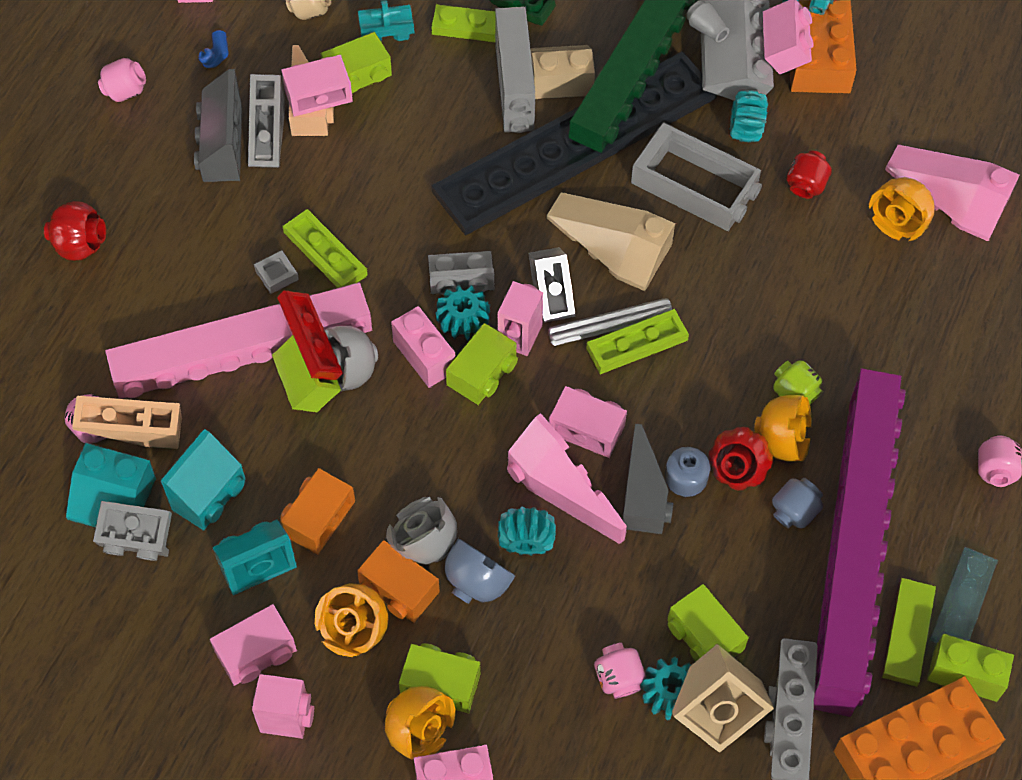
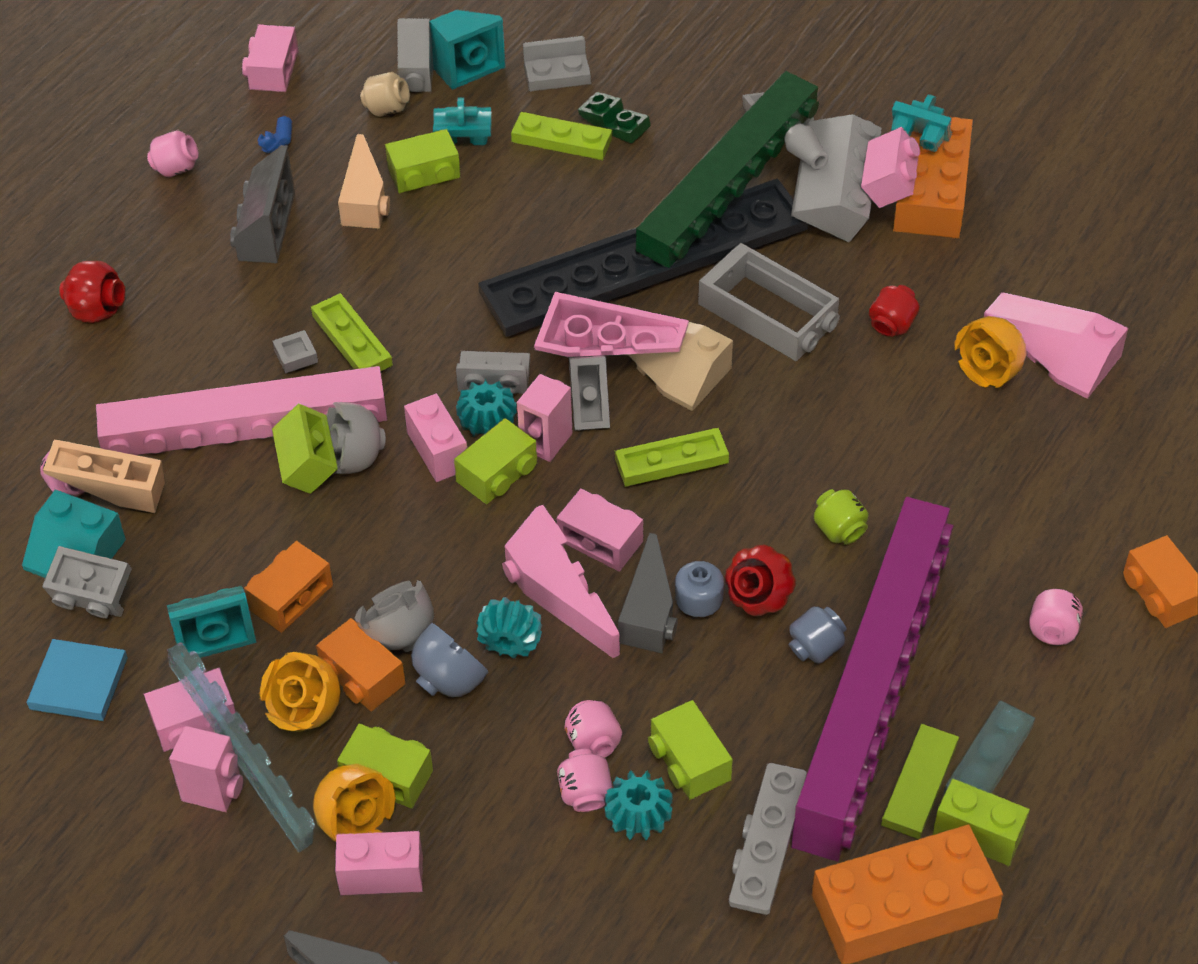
camera: 10 degrees right, 10 degrees down
(141, 626) = (77, 680): none -> dark azure tile
(203, 481) = (171, 540): teal slope -> none
(266, 120) = (315, 203): light grey slope -> none
(300, 667) = (251, 758): none -> clear light blue plate
(310, 335) = (313, 408): red tile -> none
(317, 85) = (372, 171): bright pink brick -> none
(515, 69) = (589, 177): light grey window -> none
(550, 225) = (597, 328): none -> bright pink wedge
(562, 71) = (639, 186): tan slope -> none
(607, 322) = (637, 435): light grey axle -> none
(617, 619) = (593, 727): none -> bright pink head
(720, 699) = (687, 817): tan slope -> none
(748, 116) = (836, 246): teal gear -> none
(785, 426) = (818, 555): light orange cylinder -> none

